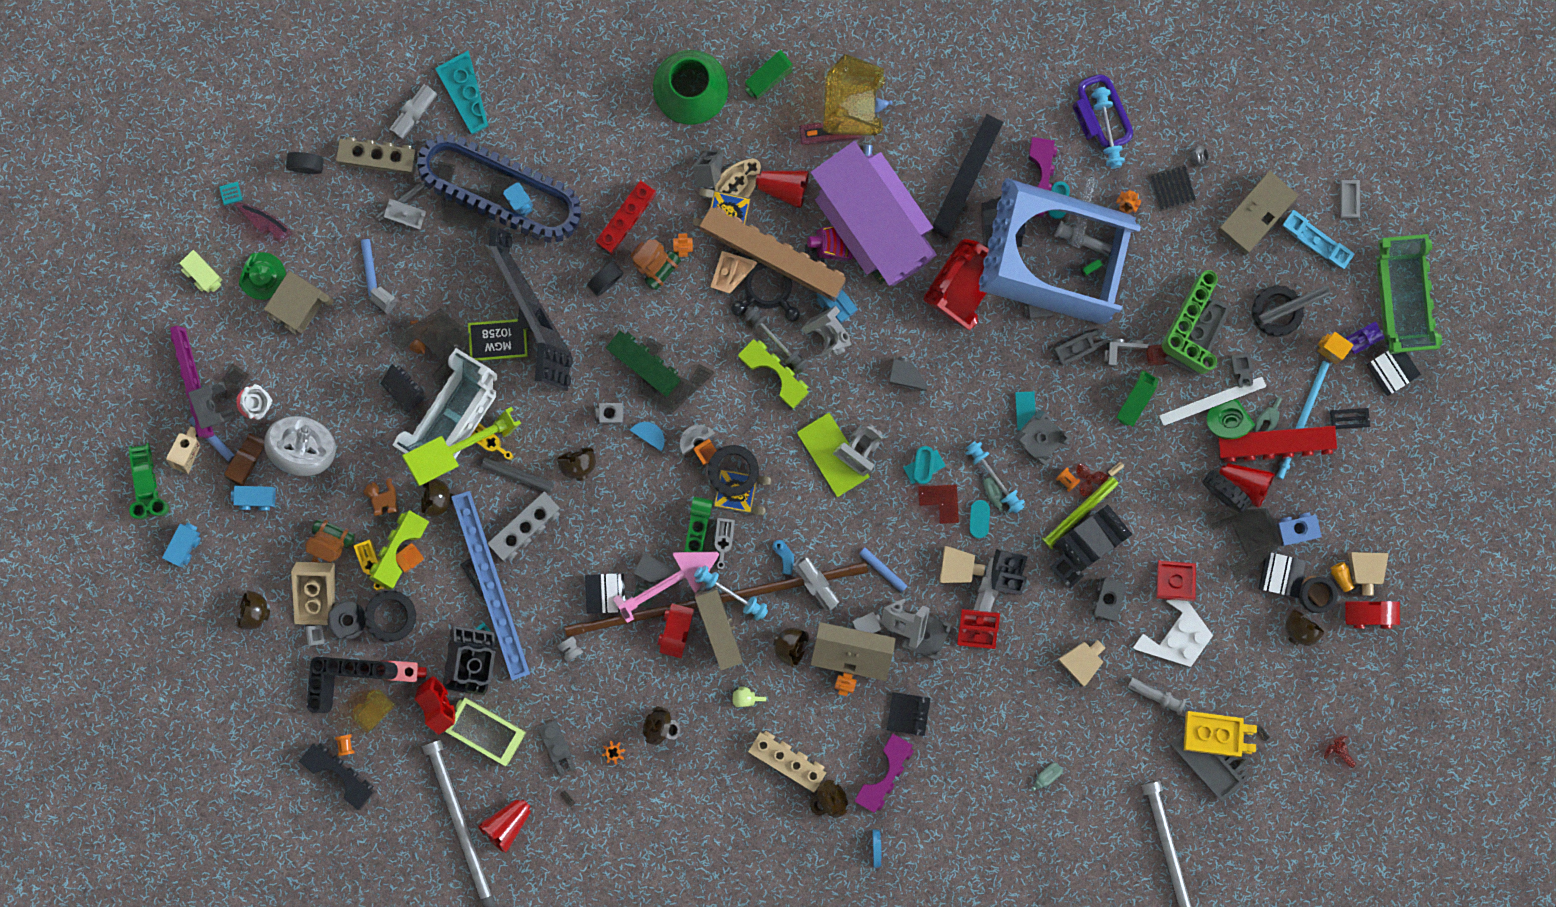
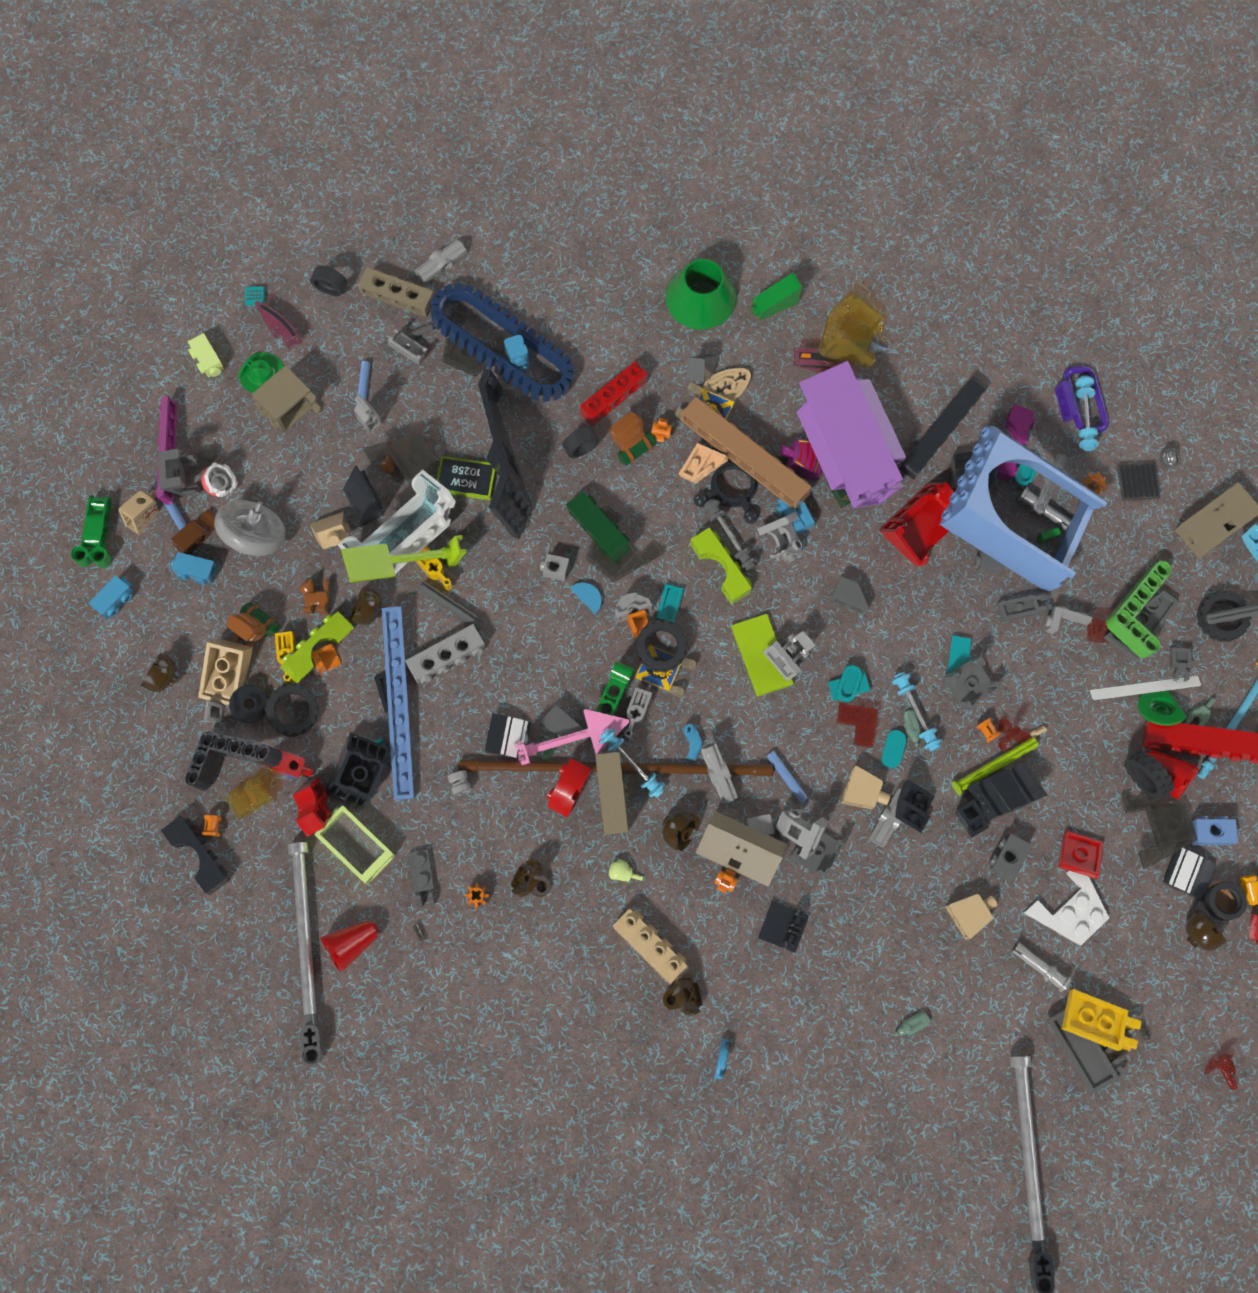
camera: 15 degrees right, 10 degrees down
(380, 428) = (331, 530): none -> tan torso
(463, 88) = (491, 251): teal wing -> none
(577, 464) = (511, 607): dark brown cylinder -> none
(731, 423) = (669, 603): none -> teal tile
(784, 185) = (769, 396): red cone -> none
(872, 795) = (763, 962): magenta arch -> none
(978, 628) = (872, 856): red slope -> none
(1137, 398) = (1071, 668): green slope -> none

